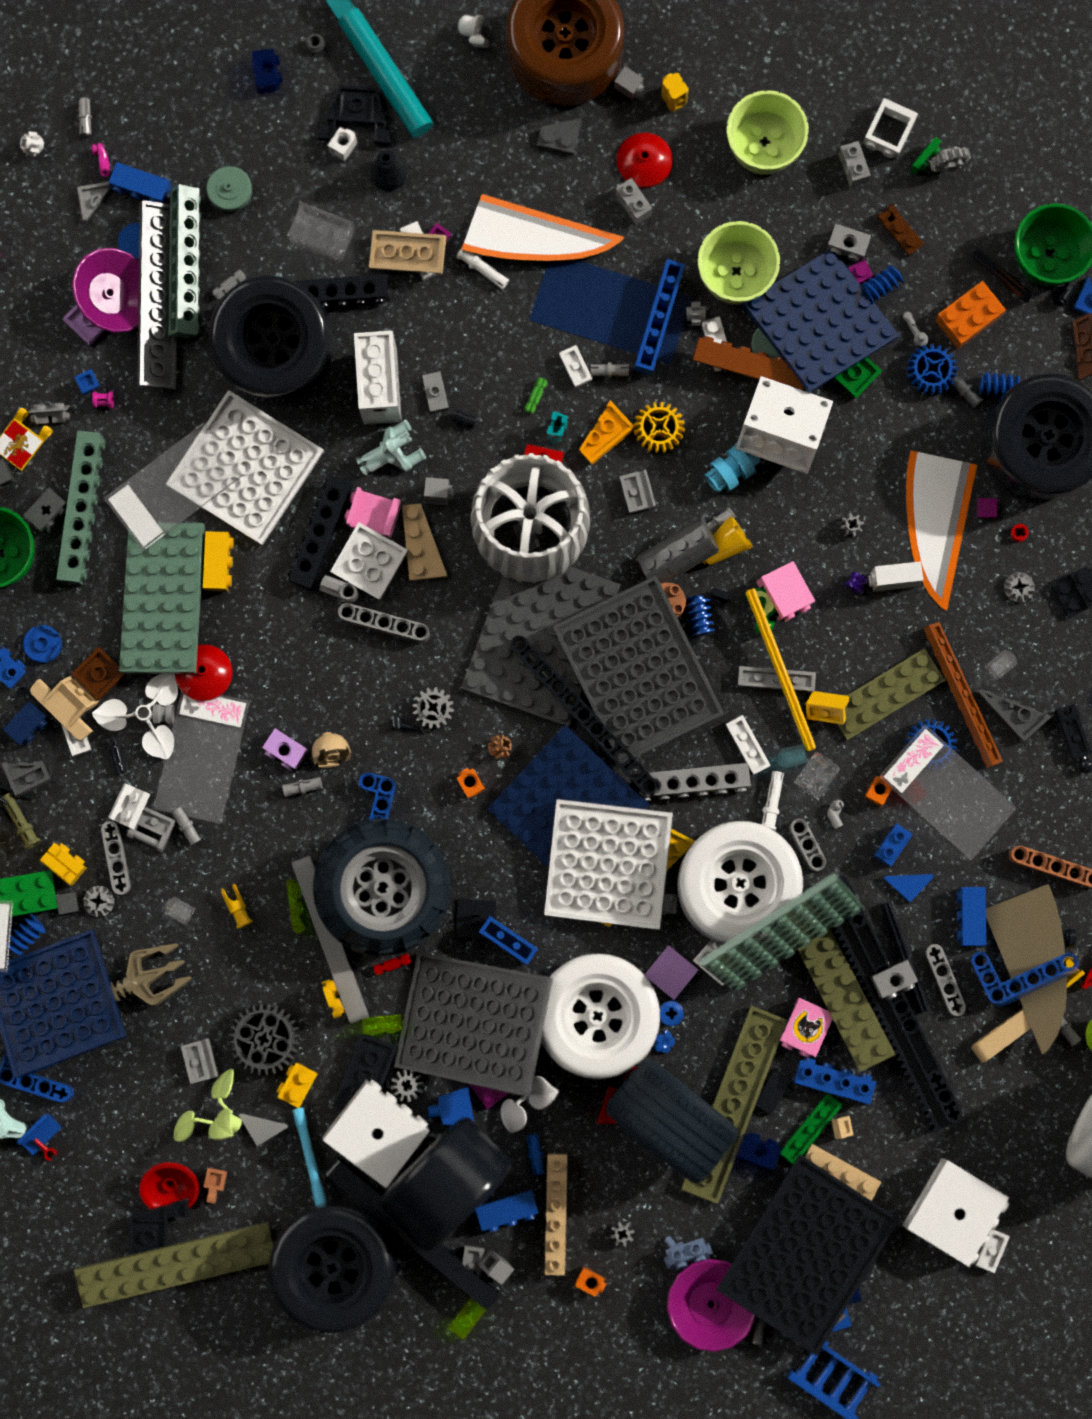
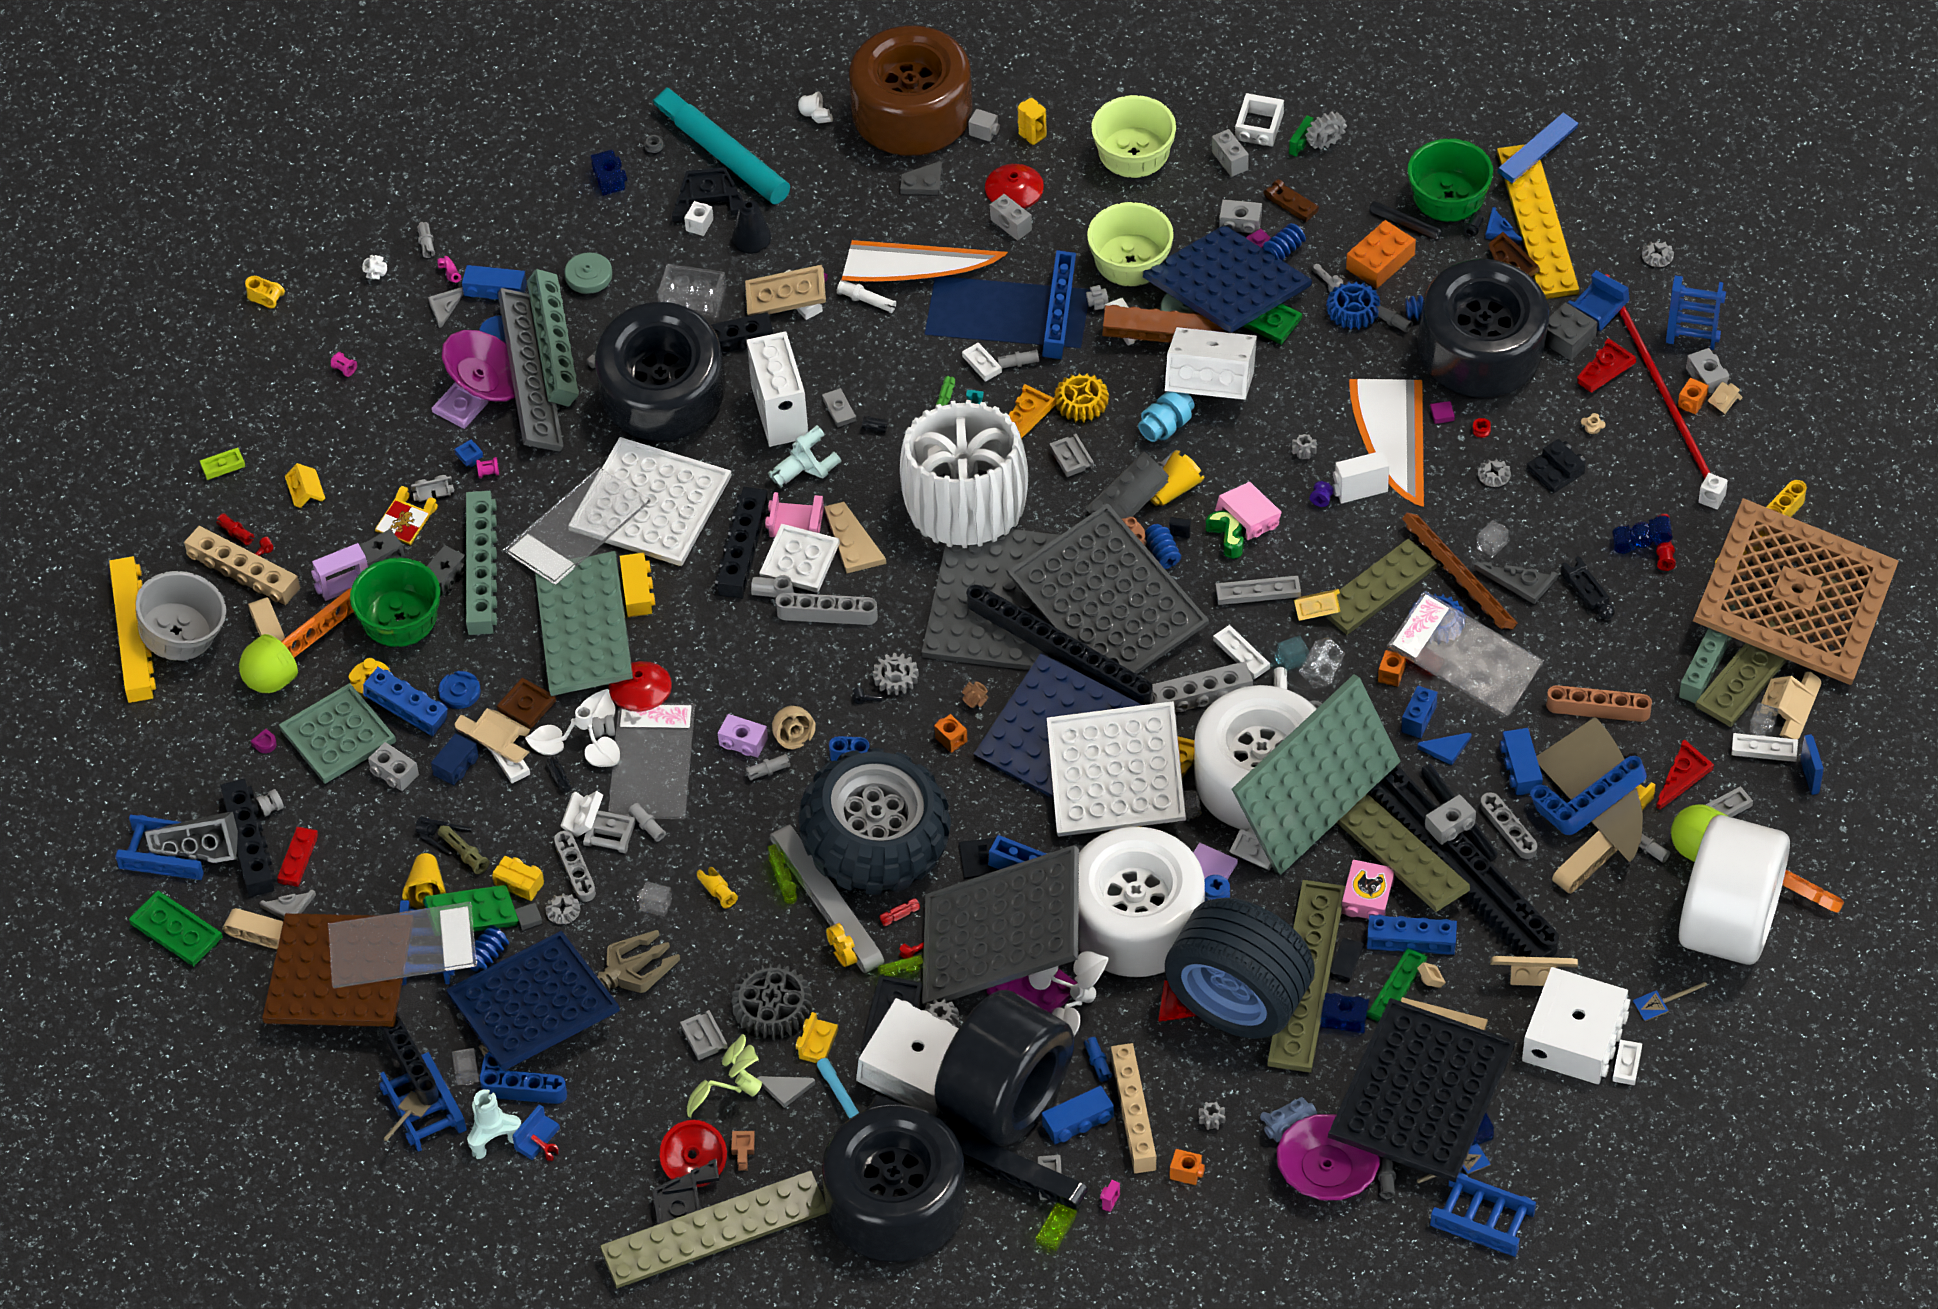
camera: 10 degrees left, 30 degrees down
(26, 776) = (463, 807): dark grey wing -> none
(391, 1007) = (908, 952): none -> red hand
(438, 491) = (860, 482): light grey brick -> none
(496, 1267) = (1078, 1166): light grey brick -> none
(518, 1297) = (1110, 1195): none -> dark pink plate
(780, 669) = (1259, 575): yellow axle -> none
(933, 1144) = (1531, 970): none -> tan plate
(1028, 1193) = (1653, 1005): none -> piece

